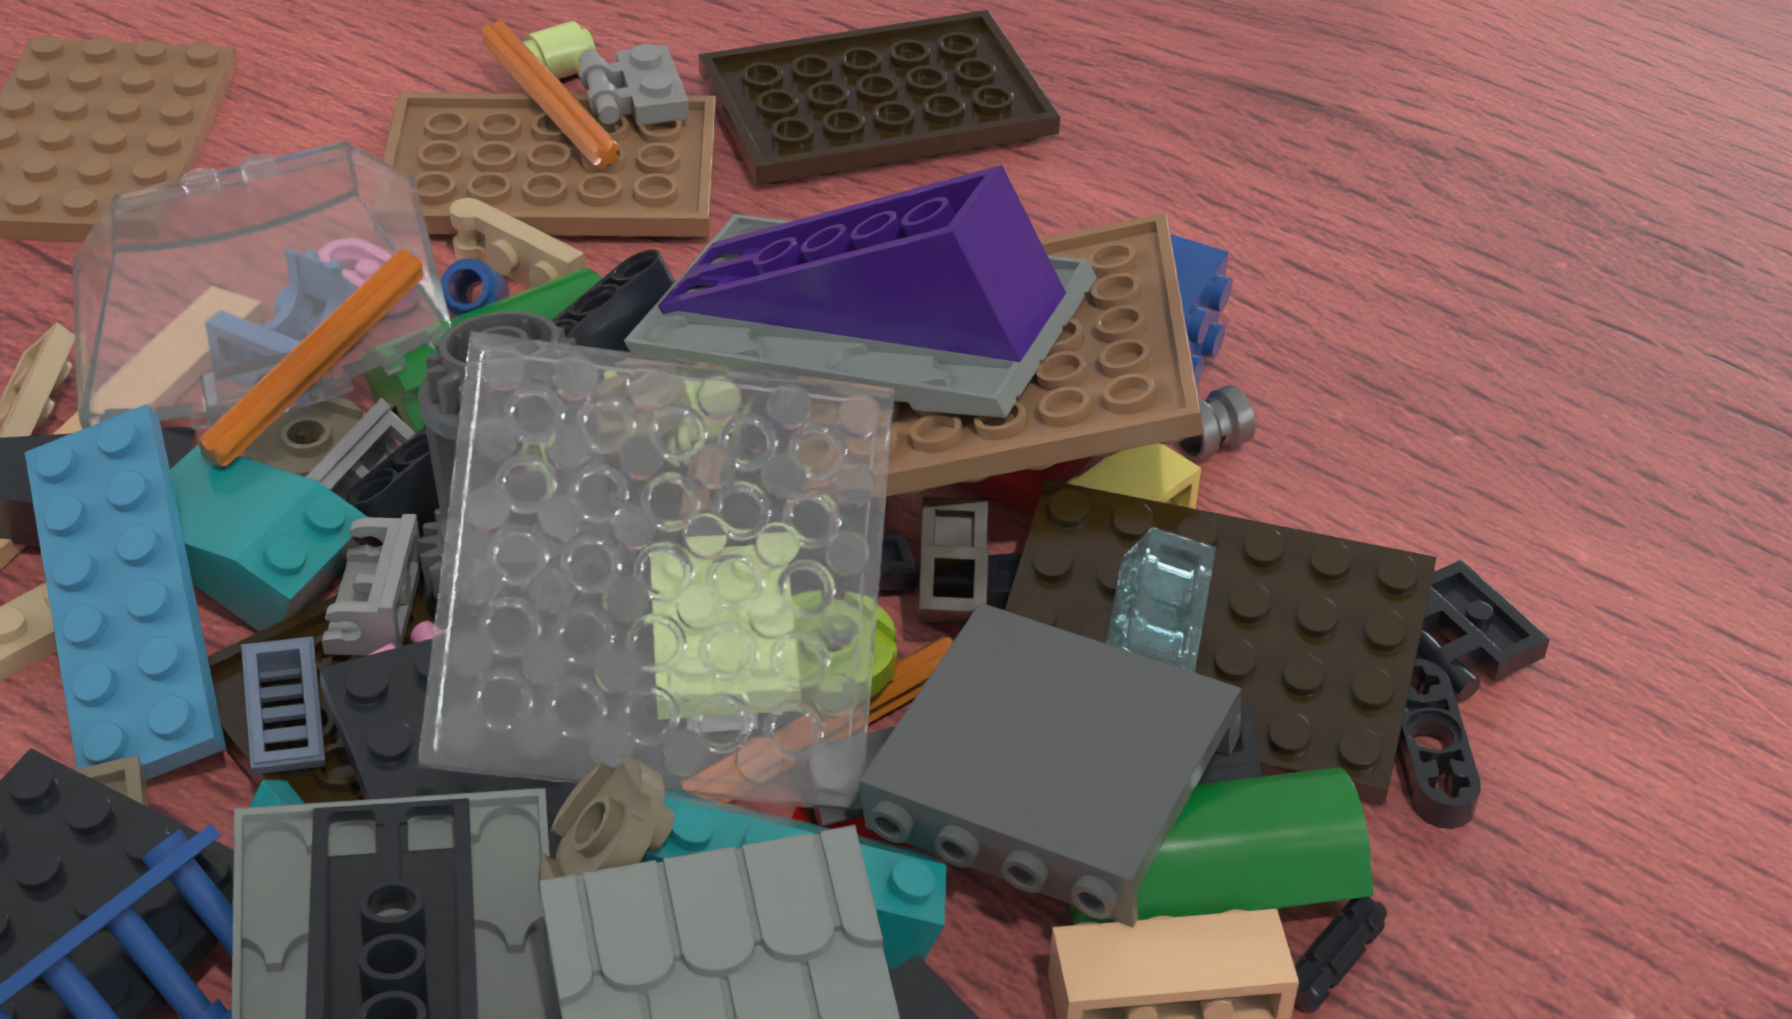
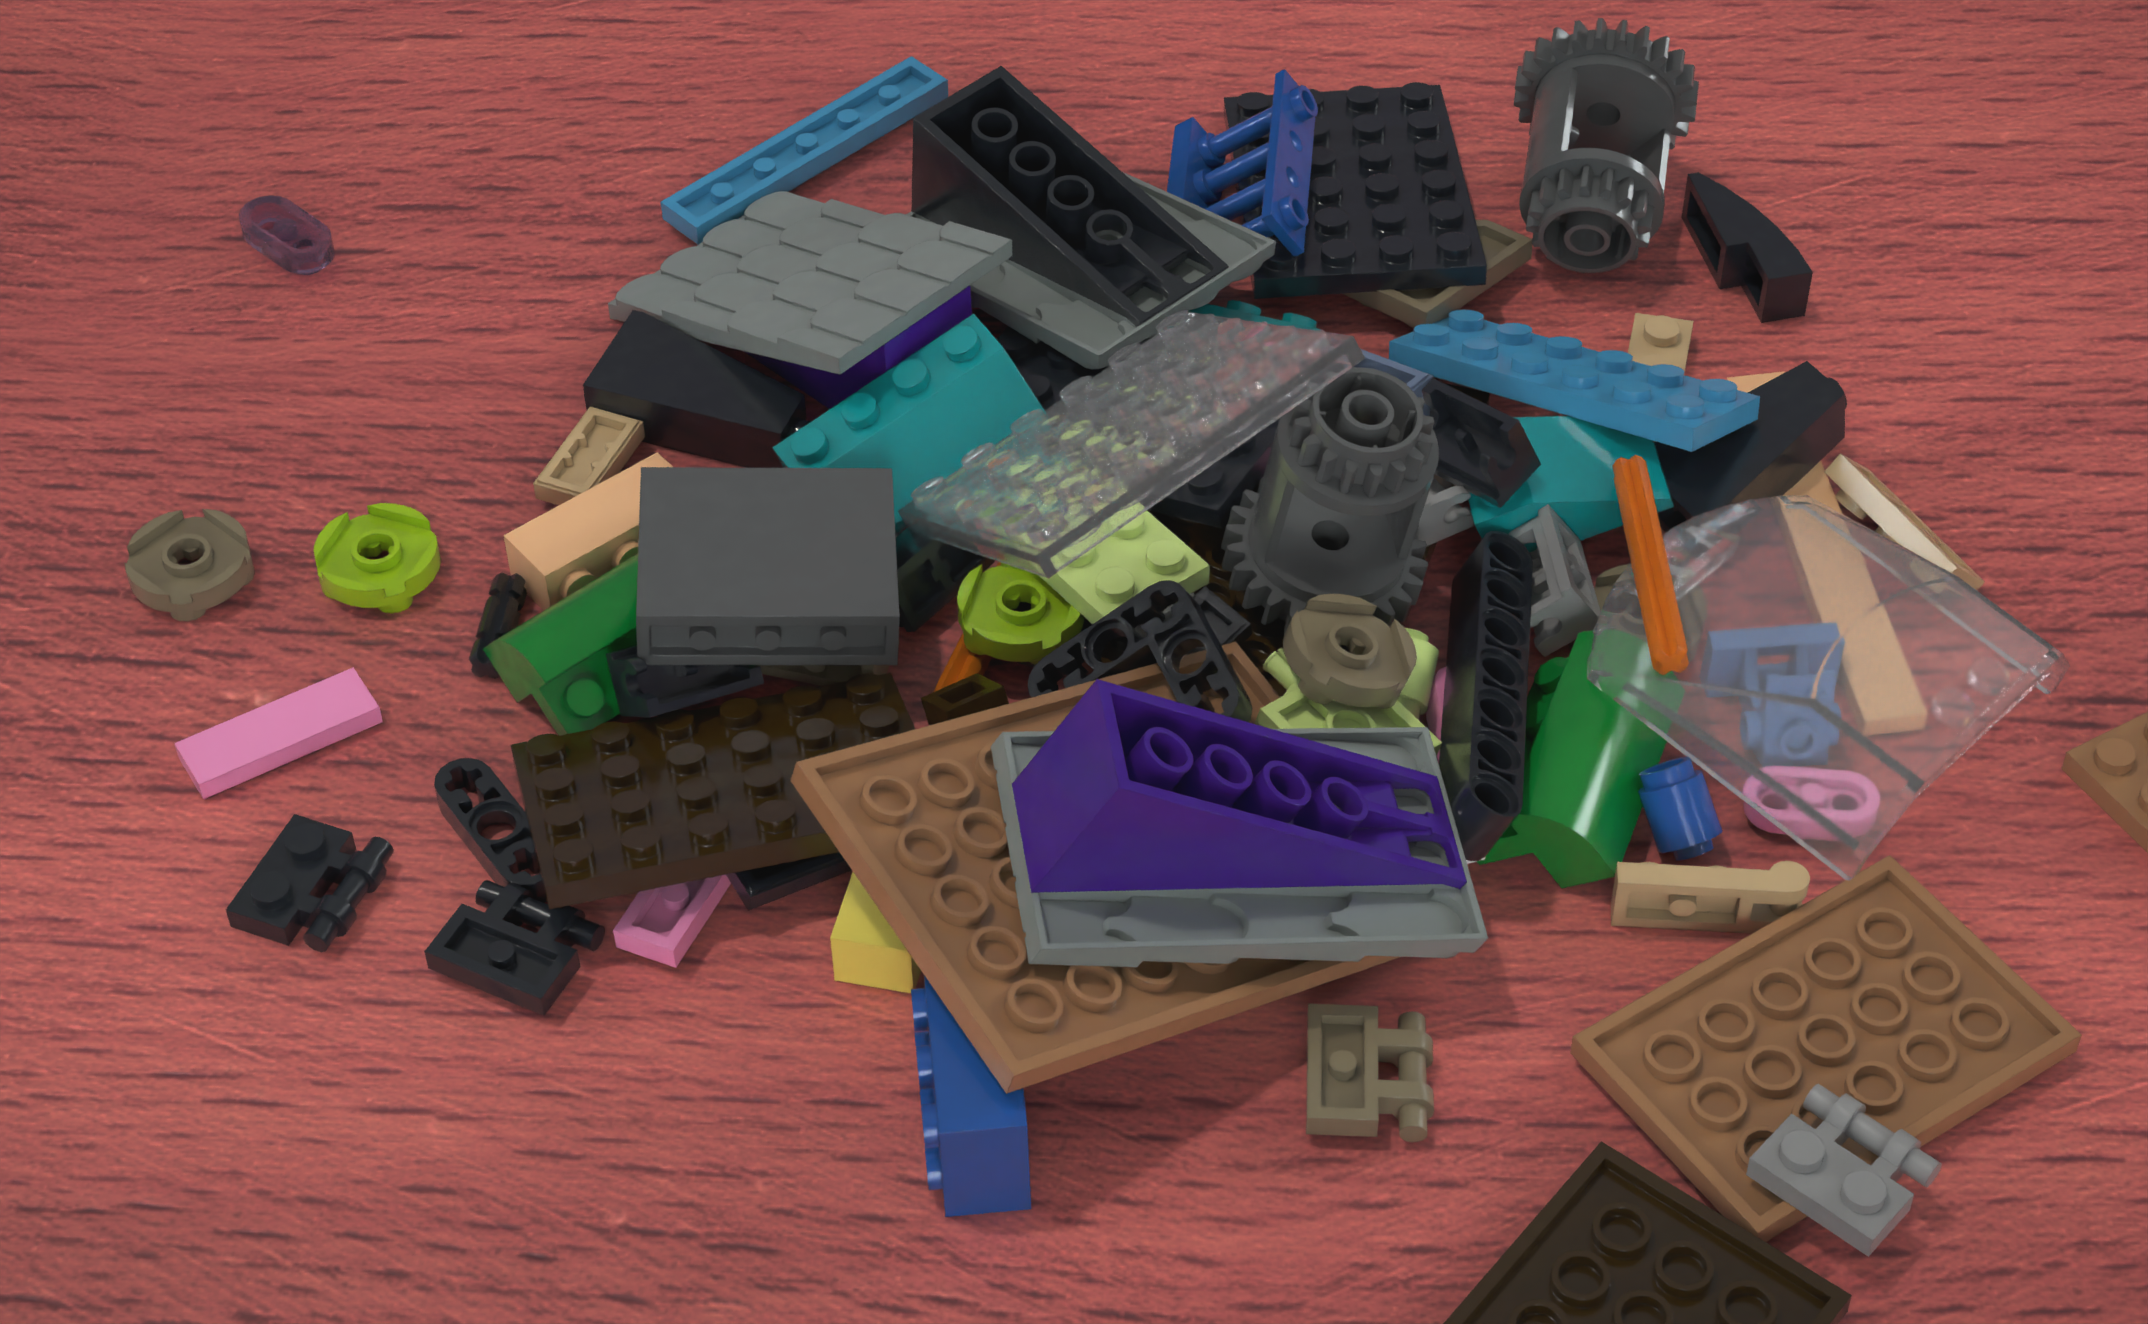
camera: 150 degrees right, 5 degrees up
(316, 525) = (1478, 444): none -> black hinge
(550, 95) = (1917, 1098): orange axle -> none
(560, 47) = (2012, 1210): yellowish green brick -> none
(609, 820) = (1029, 328): dark tan plate -> none
(1162, 598) = (754, 693): clear light blue brick -> none
(1226, 422) = (862, 1058): flat silver wheel -> none
(1620, 947) = (278, 733): none -> bright pink tile
(1643, 793) = (294, 877): none -> black plate

